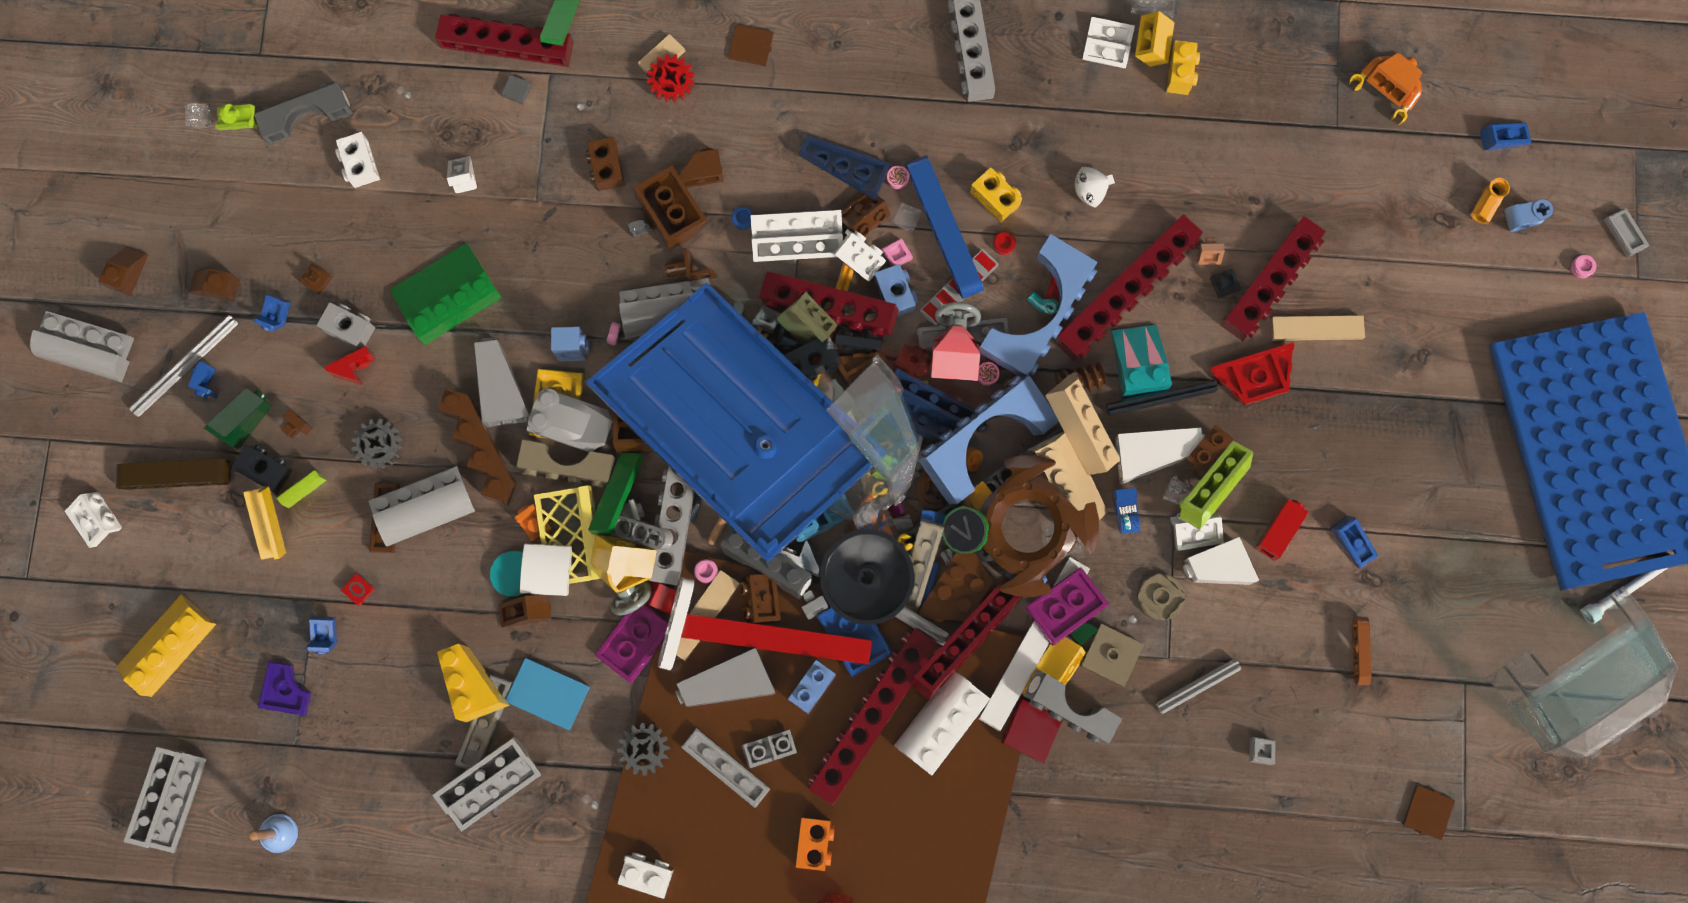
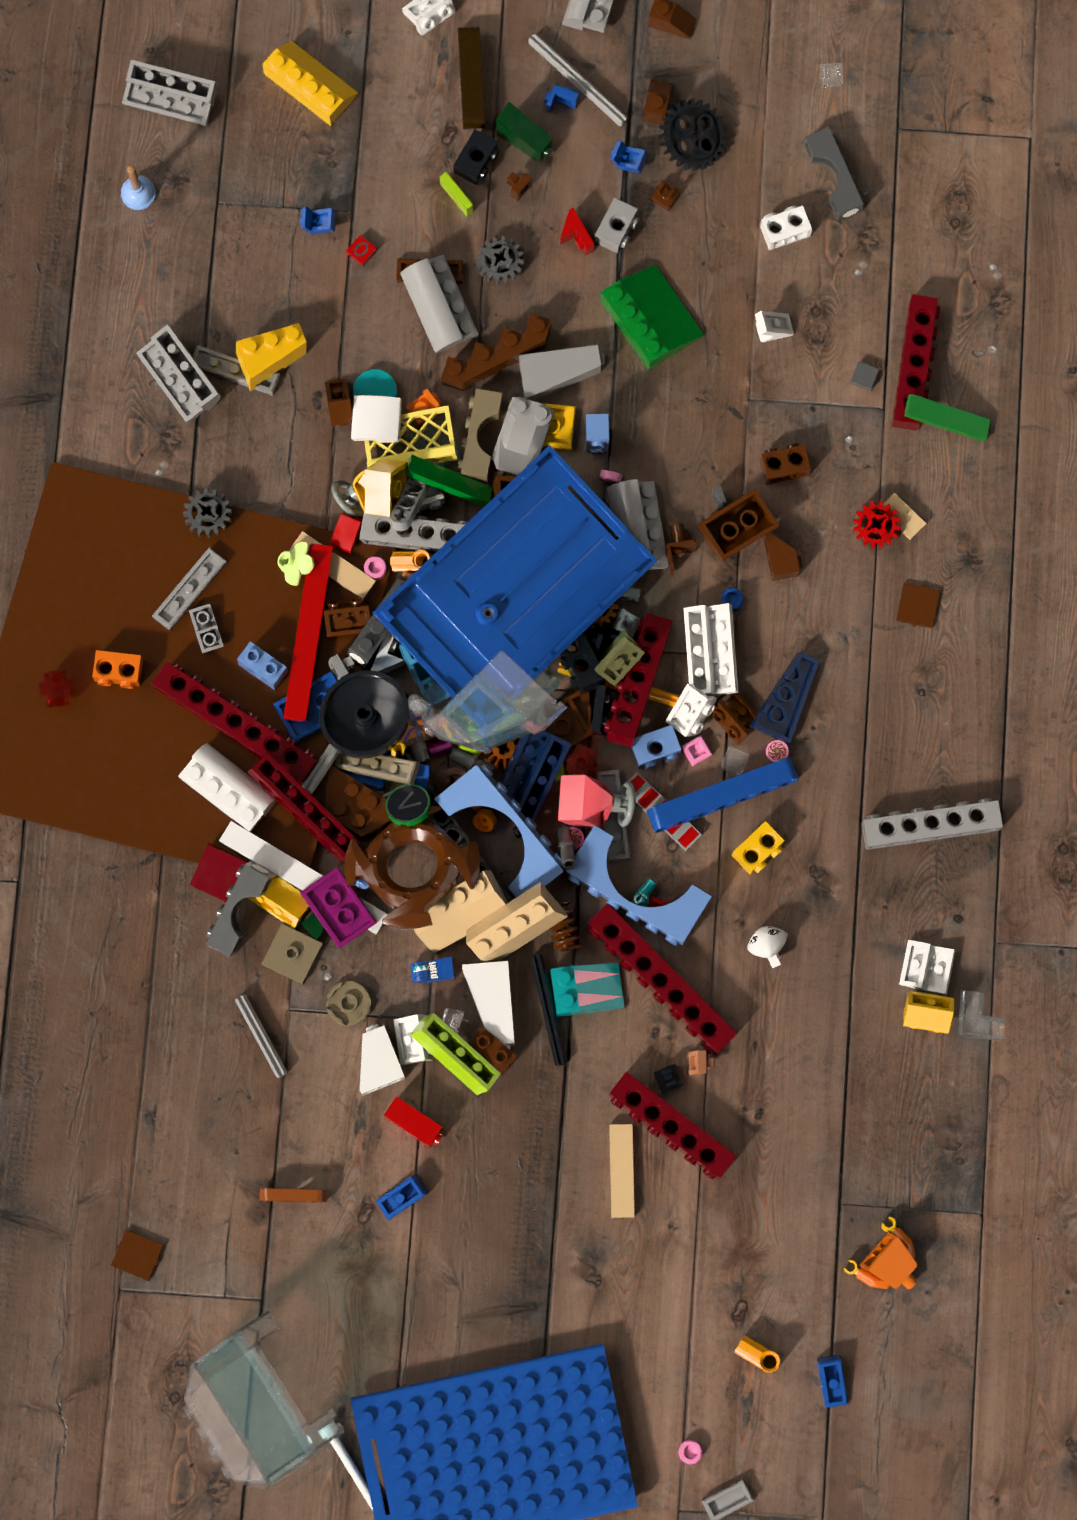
camera: 85 degrees right, 0 degrees up
(236, 117) = (825, 110): lime hips -> none
(252, 247) = (675, 134): none -> black gear
(265, 523) = (422, 163): yellow panel -> none
(282, 692) = (266, 188): dark purple tile -> none
(547, 694) = (261, 426): dark azure tile -> none
(633, 642) = (308, 503): magenta tile -> none
(645, 875) = (92, 518): white bracket -> none
(676, 623) = (323, 538): white beam -> none
(700, 532) = (408, 560): none -> light orange piece
(701, 649) = (296, 563): none -> yellowish green plate
(729, 681) = (270, 593): light grey slope -> none
(979, 495) = (445, 822): light orange tile -> none
(1002, 375) = (566, 847): none -> dark grey pin
(1004, 243) = (708, 857): red tile -> none
(1182, 67) = (898, 1040): yellow brick -> none
(1257, 375) = (571, 1106): red wing -> none
(1262, 751) = (197, 1094): light grey tile -> none
(1525, 215) = (742, 1389): medium blue piece -> none

